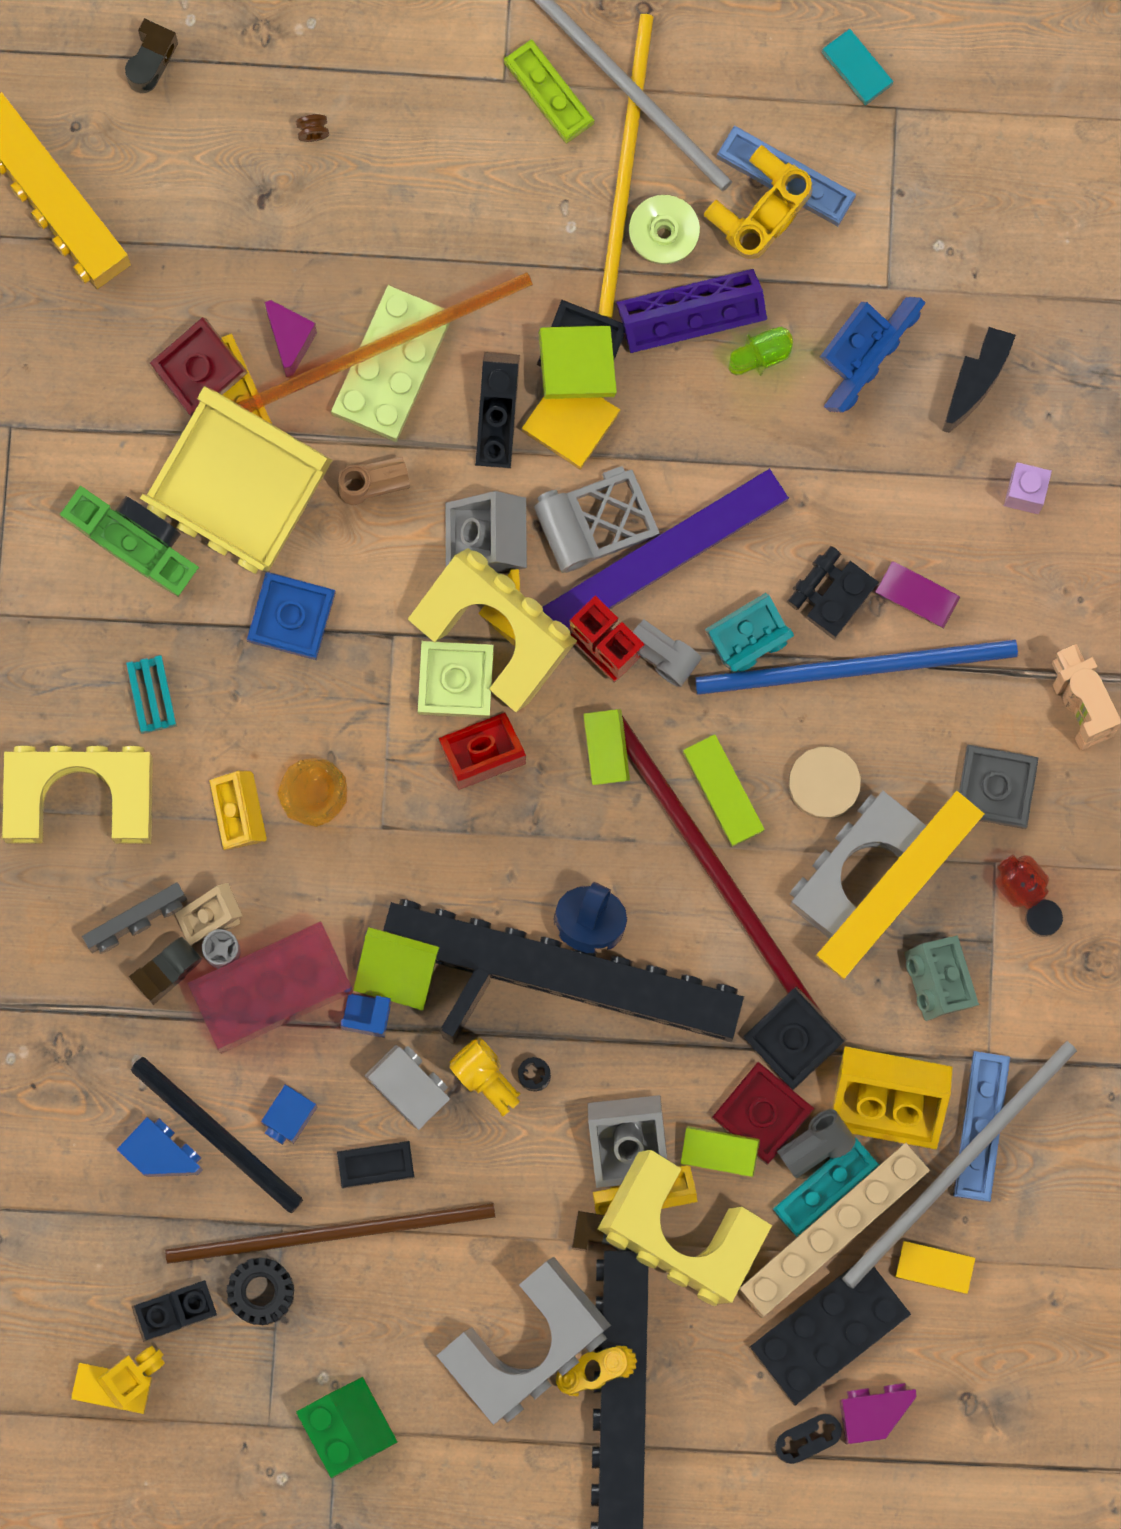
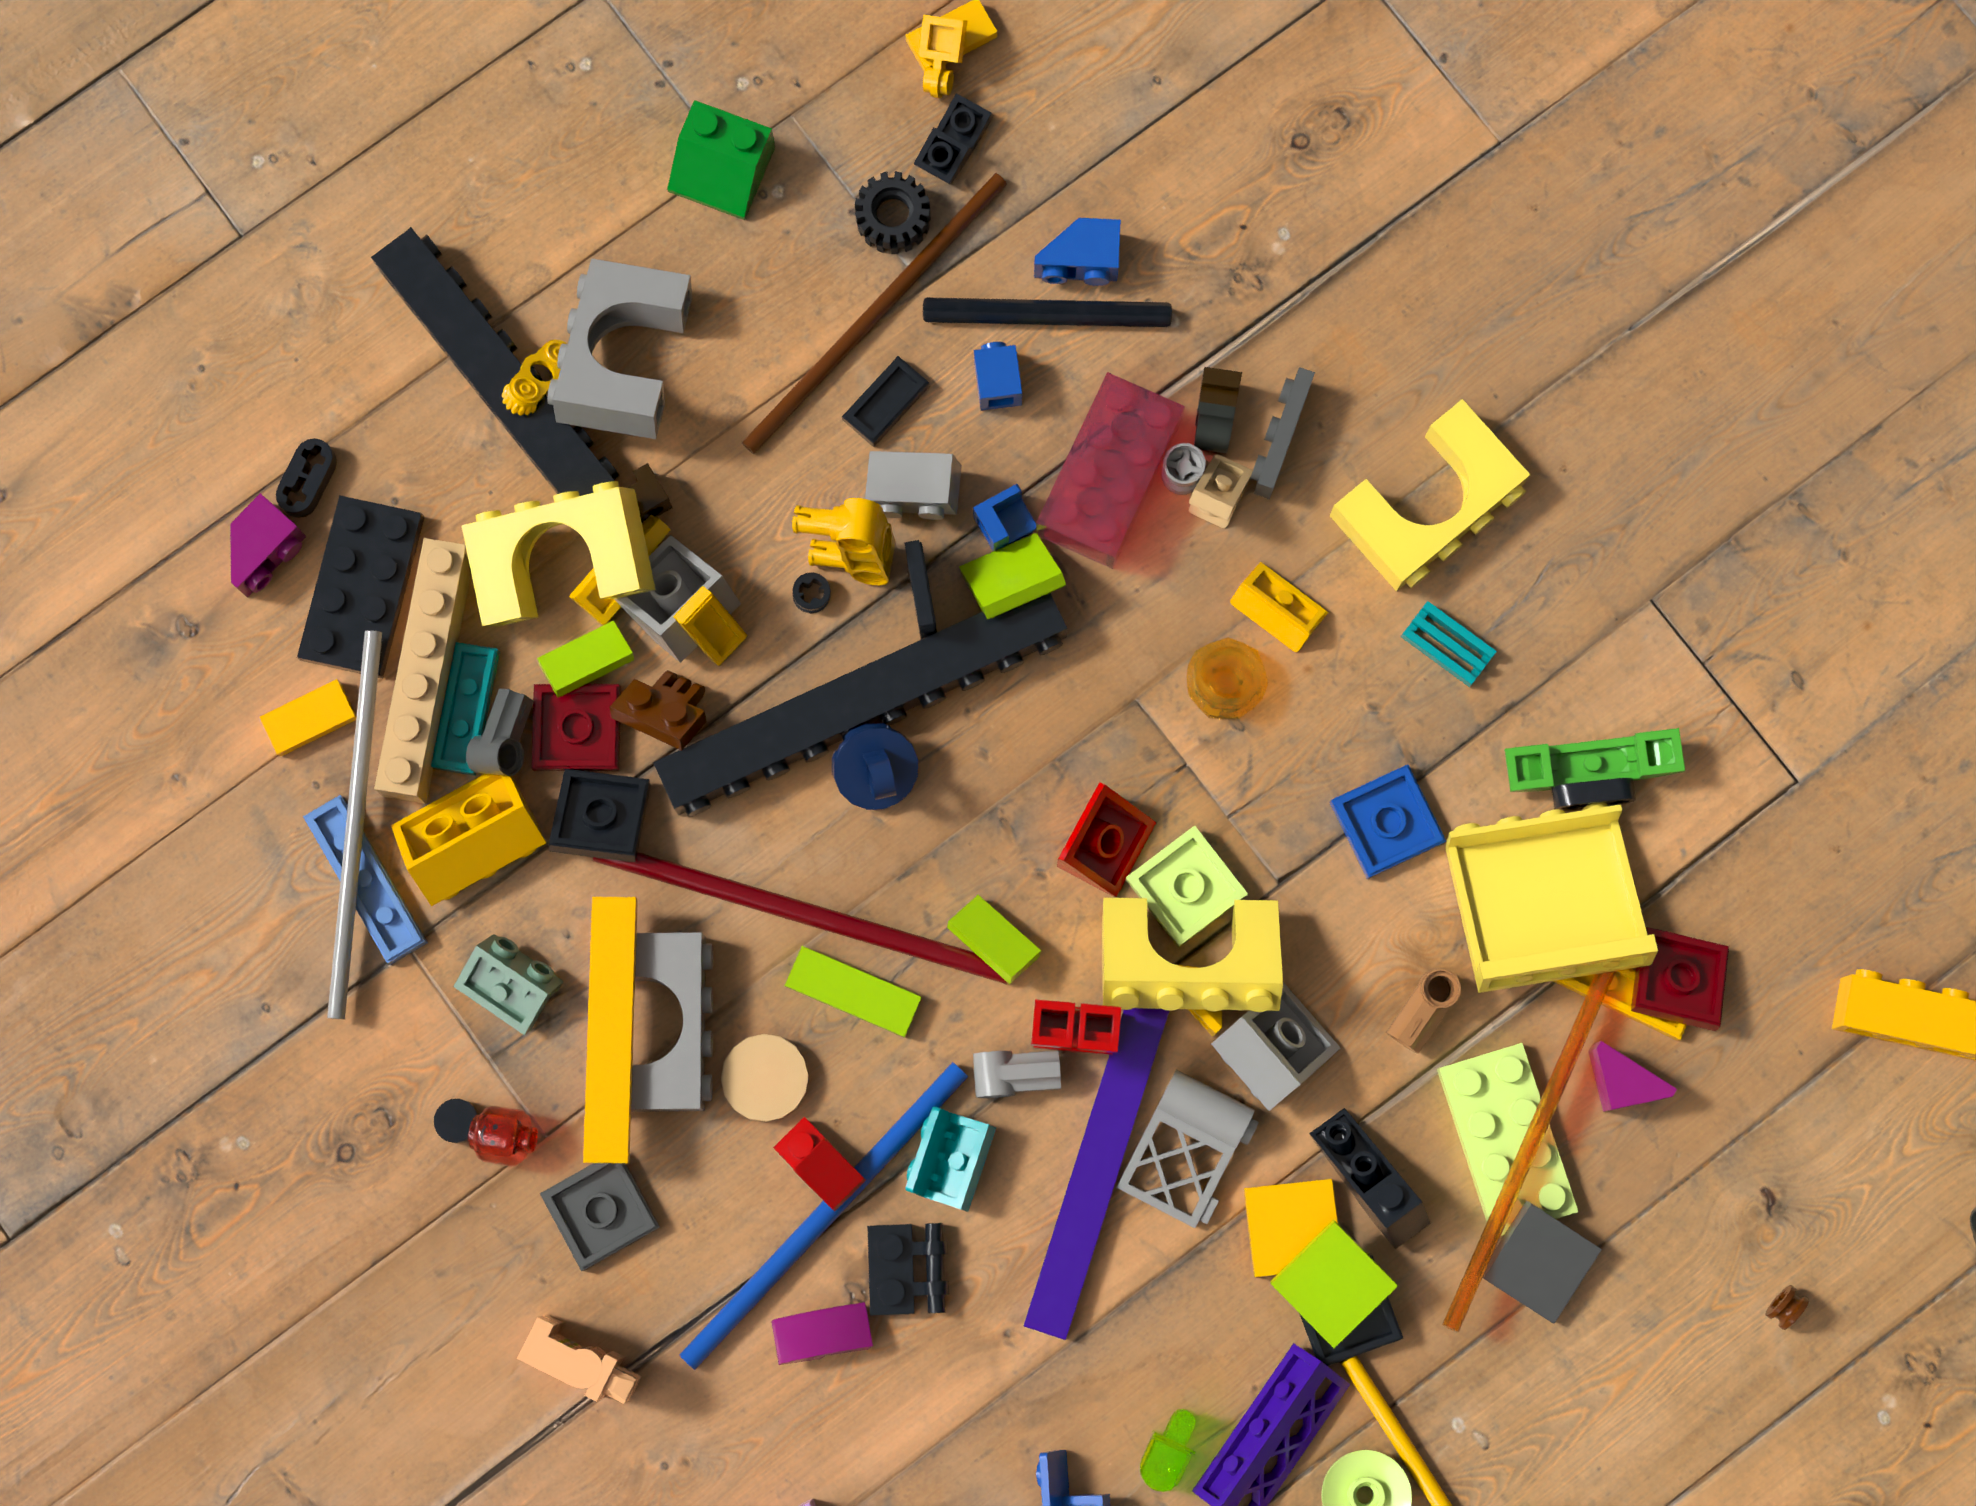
camera: 145 degrees right, 0 degrees up
(438, 274) = (1540, 1262): none -> dark grey tile
(621, 1098) = (710, 626): none -> yellow tile
(697, 1072) = (662, 710): none -> reddish brown hinge
(834, 698) = (819, 1164): none -> red slope

